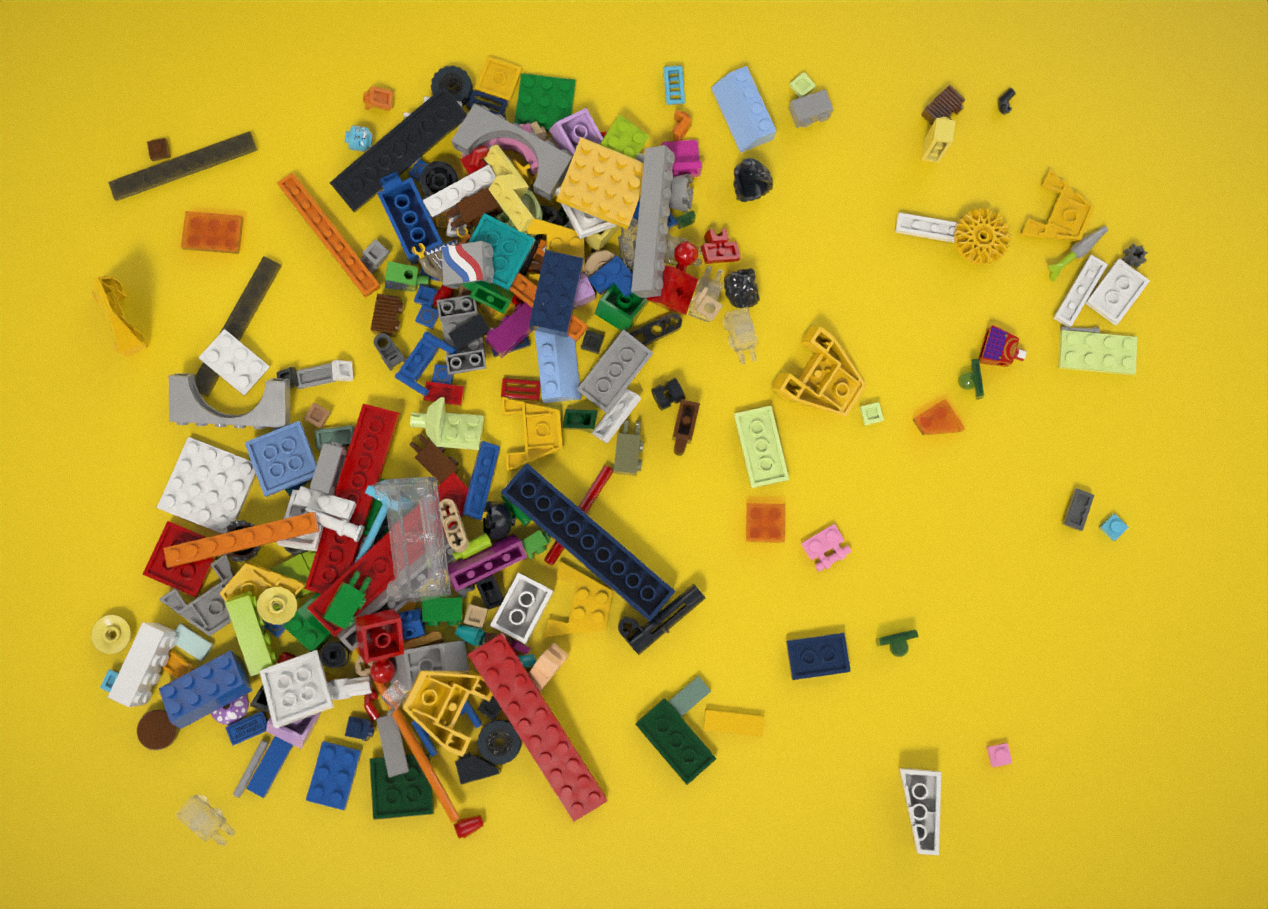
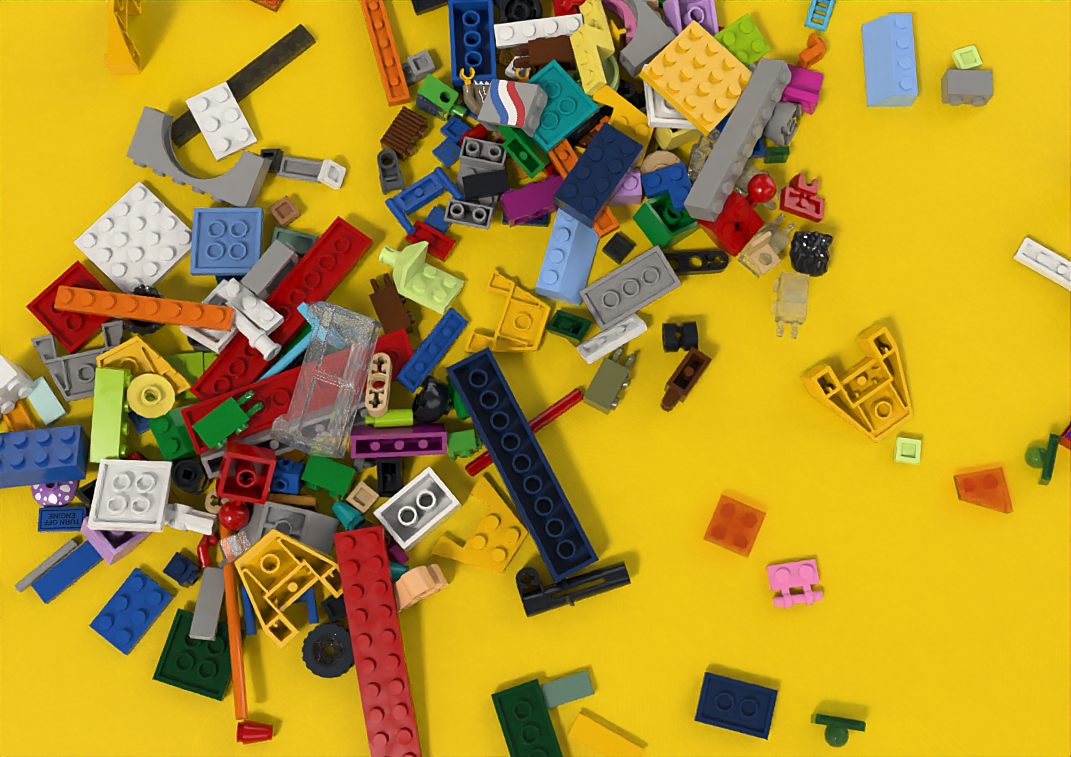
camera: 30 degrees right, 5 degrees down
(474, 768) = (288, 668): black slope -> none
(517, 389) = (534, 277): red tile -> none
(751, 180) = (868, 139): black hair -> none
(761, 447) = (763, 438): yellowish green plate -> none

